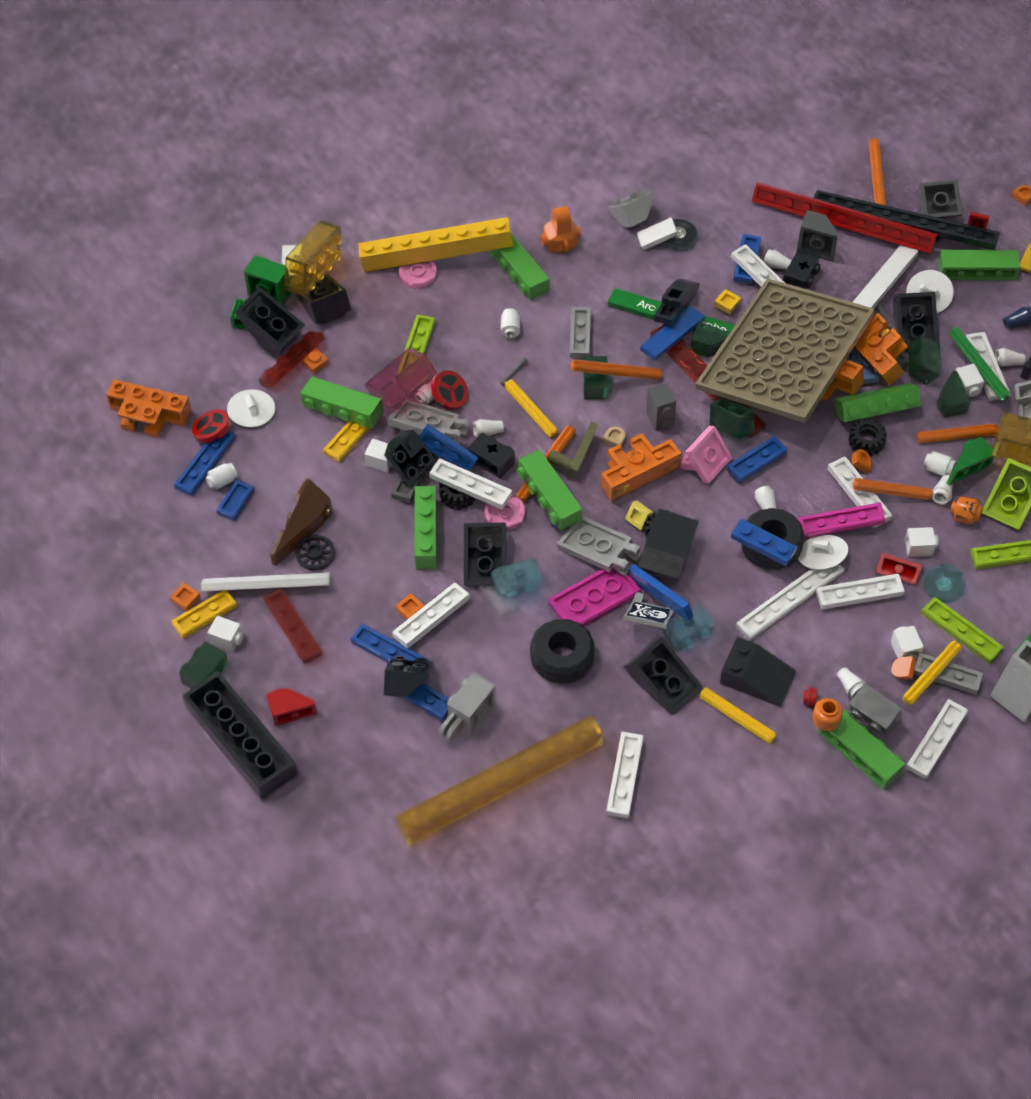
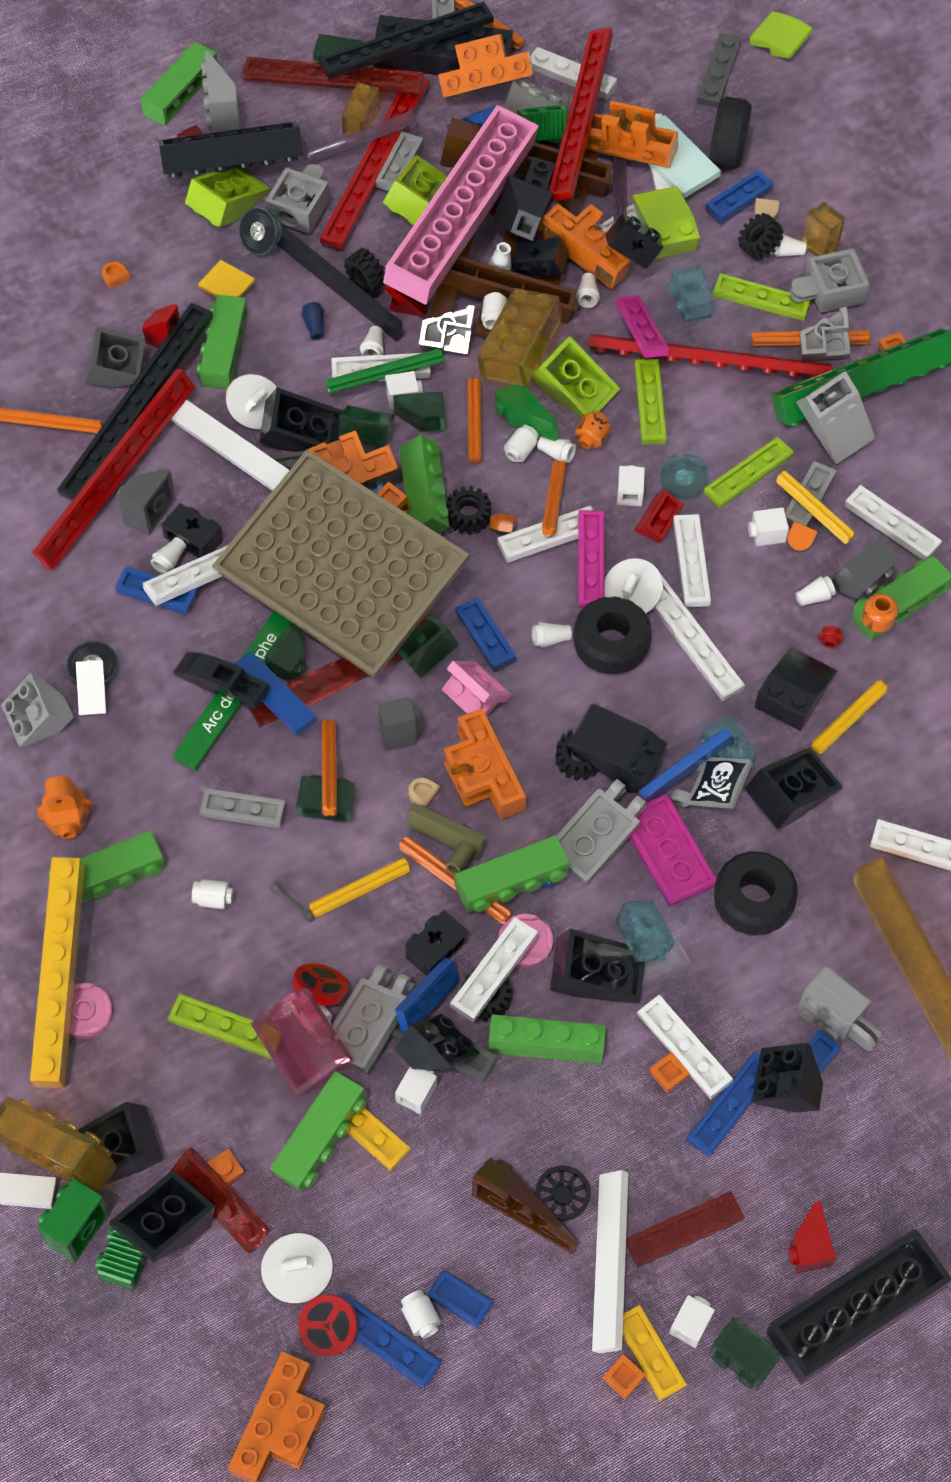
camera: 85 degrees left, 5 degrees up
(488, 427) = (388, 946): white cone -> none
(638, 515) = (555, 778): light yellow tile -> none
(727, 301) = (225, 625): yellow plate -> none
(763, 542) = (632, 638): blue plate -> none

